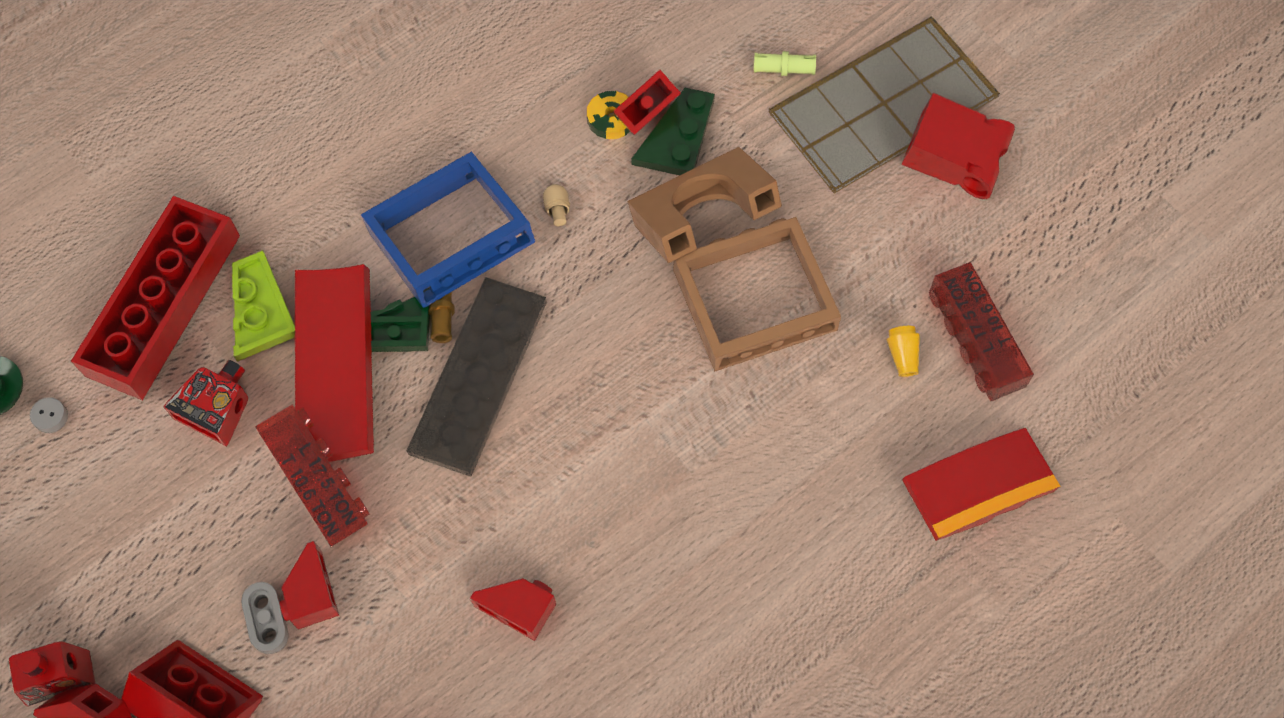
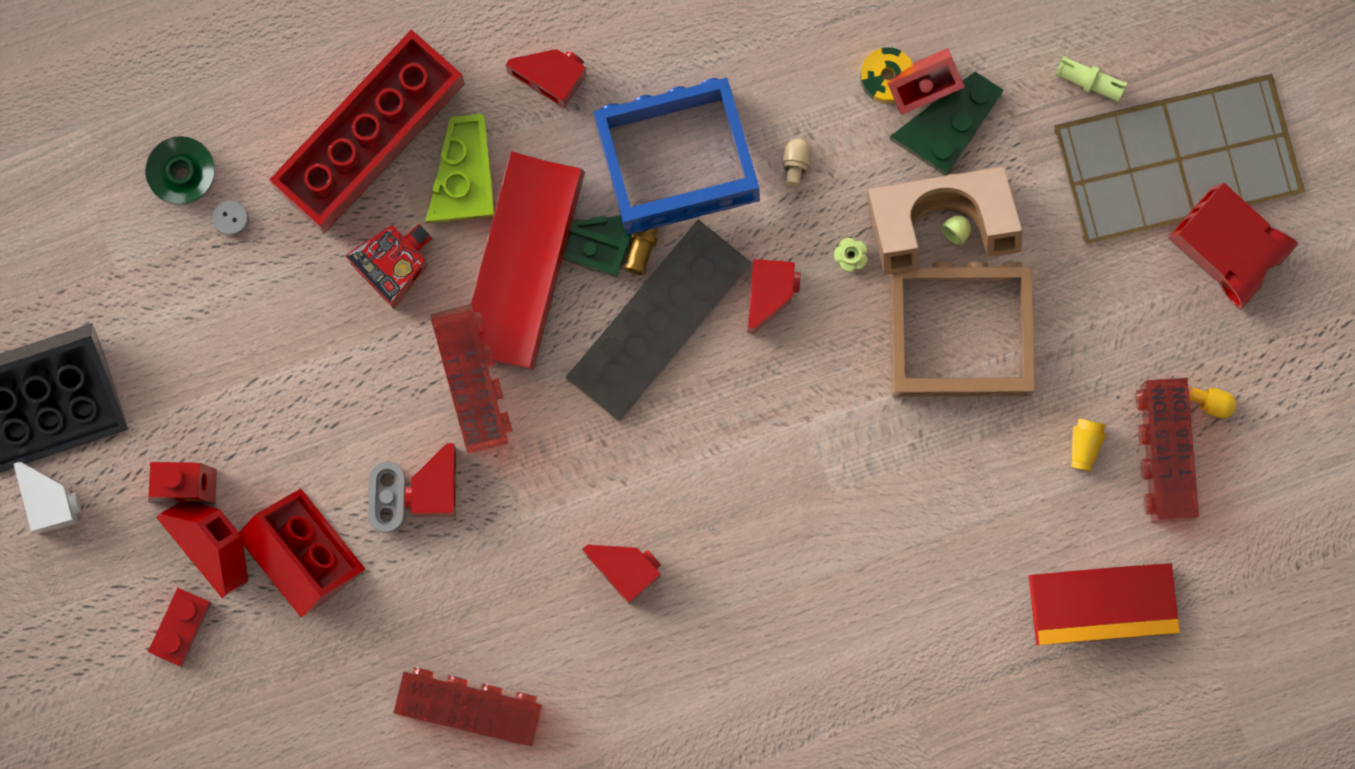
camera: 15 degrees right, 15 degrees up
(312, 201) = (550, 74): none -> red slope
(571, 314) = (770, 290): none -> red slope
(635, 271) = (850, 264): none -> yellowish green plate
(717, 214) = (956, 230): none -> yellowish green hinge
(1002, 279) = (1214, 401): none -> yellow cylinder

